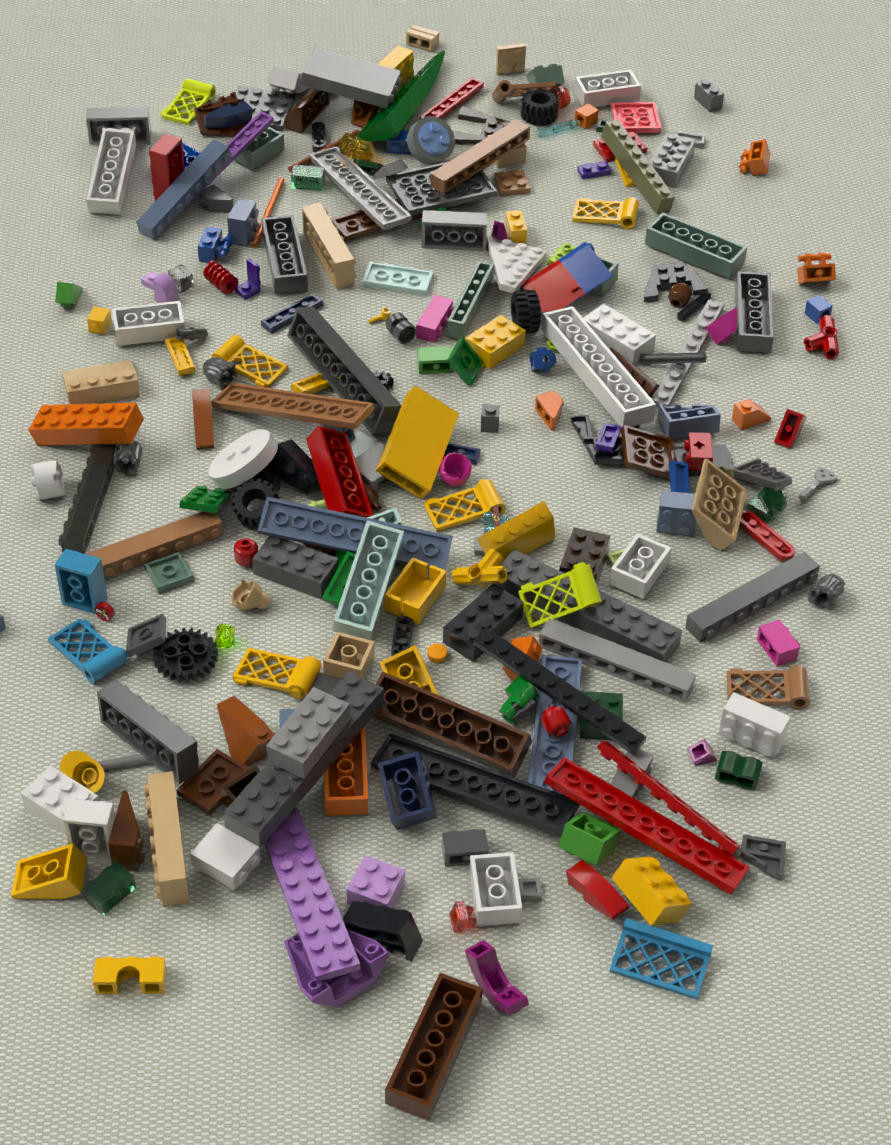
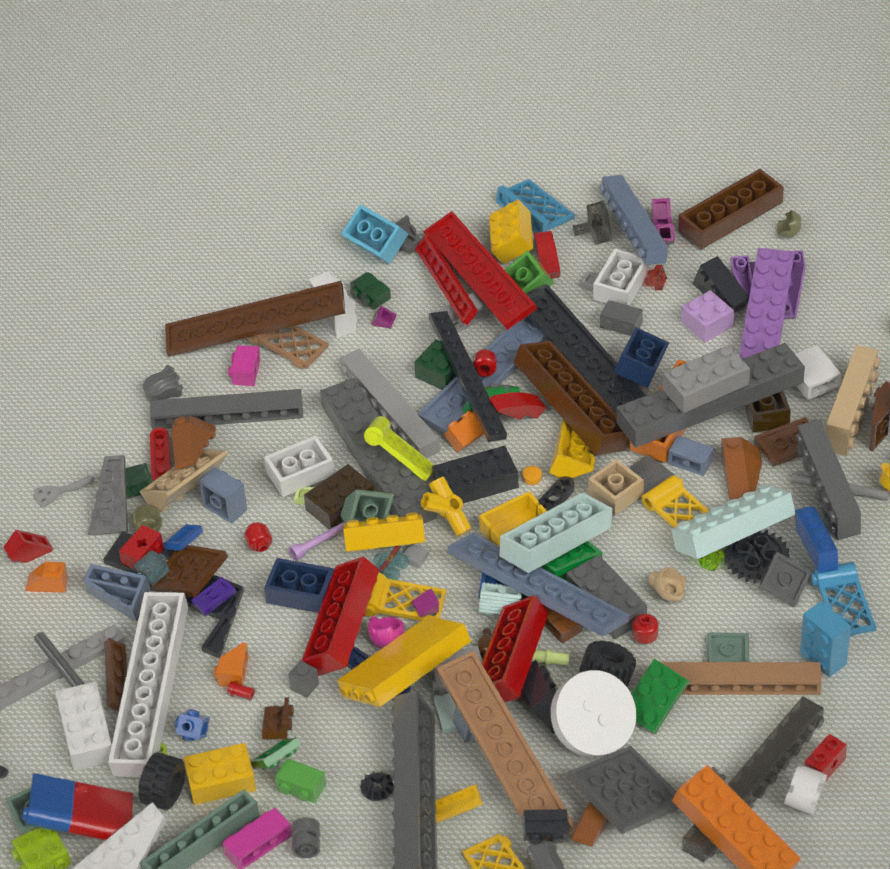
camera: 145 degrees left, 0 degrees up
(43, 512) = (827, 756): none -> red brick
(132, 672) = (816, 539): none -> blue brick
(188, 429) = (625, 789): none -> dark grey plate
(217, 659) = (732, 521): none -> light aqua brick
(232, 382) = (545, 825): none -> black brick
(354, 1057) = (790, 226): none -> olive hair
(439, 504) = (426, 603): none -> magenta slope
(485, 387) = (277, 721): none -> reddish brown bracket
(493, 687) = (518, 404): none -> red slope
(495, 457) = (340, 615): none -> red brick
(529, 399) = (240, 690): none -> red pin
(531, 962) = (633, 220): none -> sand blue brick
(547, 541) = (366, 504): none -> sand green slope
(551, 475) = (297, 585): none -> dark blue brick
(570, 953) = (597, 224): none -> clear smoke brick
(580, 509) = (298, 550): none -> lavender piece
(620, 501) = (258, 537): none -> red head
(675, 438) = (152, 566): none -> clear light blue brick
(750, 543) = (189, 439): none -> dark orange wedge
(787, 823) = (374, 234): none -> medium azure brick
(802, 668) = (255, 318): none -> reddish brown plate

